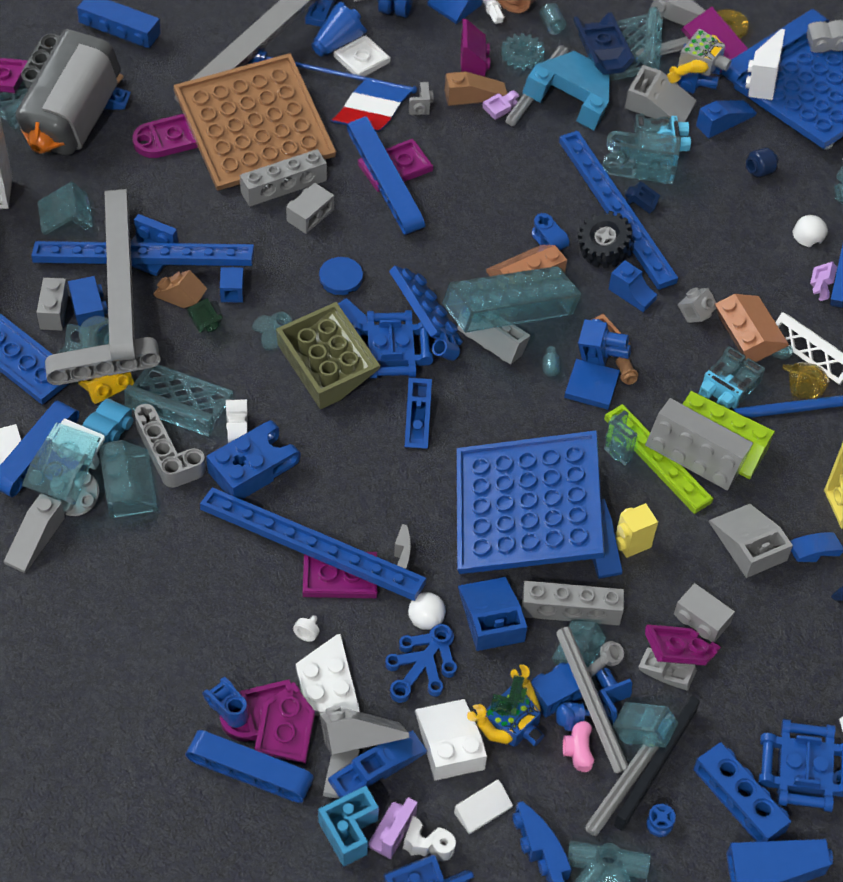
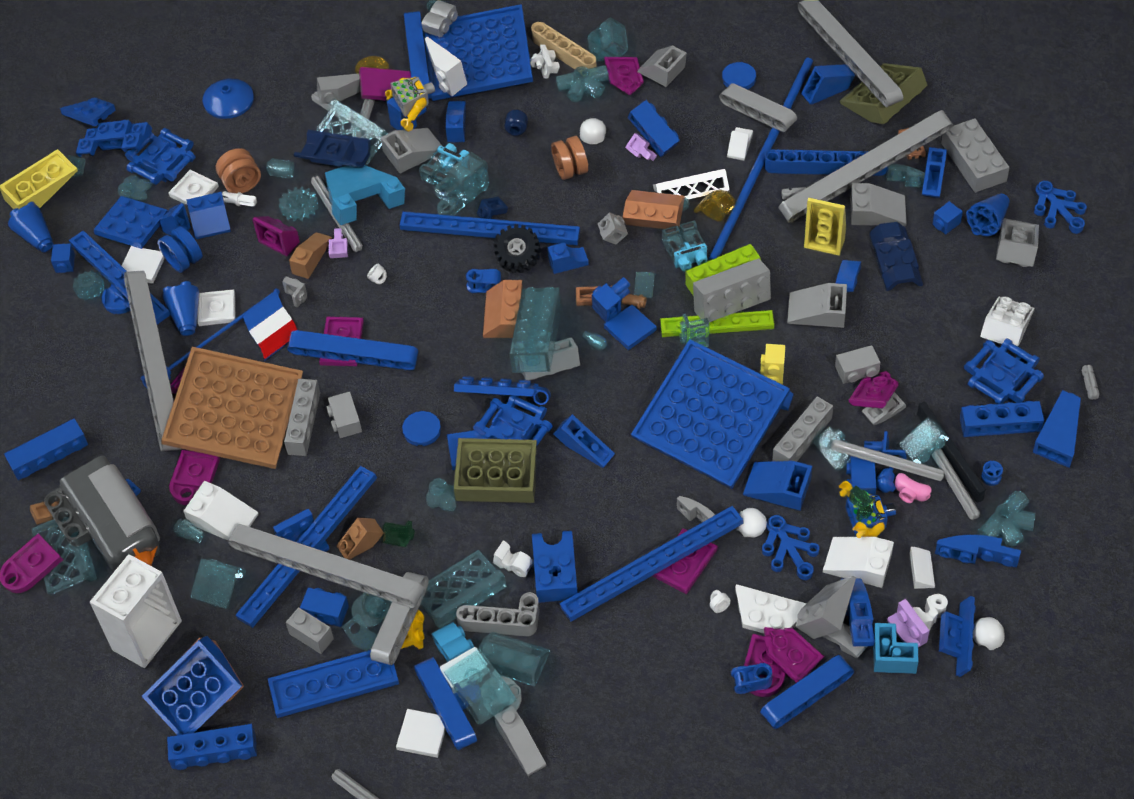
camera: 50 degrees left, 0 degrees up
(104, 160) = (188, 530): none -> clear light blue cone
(138, 172) = (218, 511): none -> white slope
(231, 284) = (380, 501): blue brick -> none
(489, 148) = (375, 272): none -> white tile
(610, 654) = (855, 434): light grey plate -> none
(654, 367) = (644, 283): none -> clear light blue bracket
(752, 223) = (569, 157): none -> nougat wheel

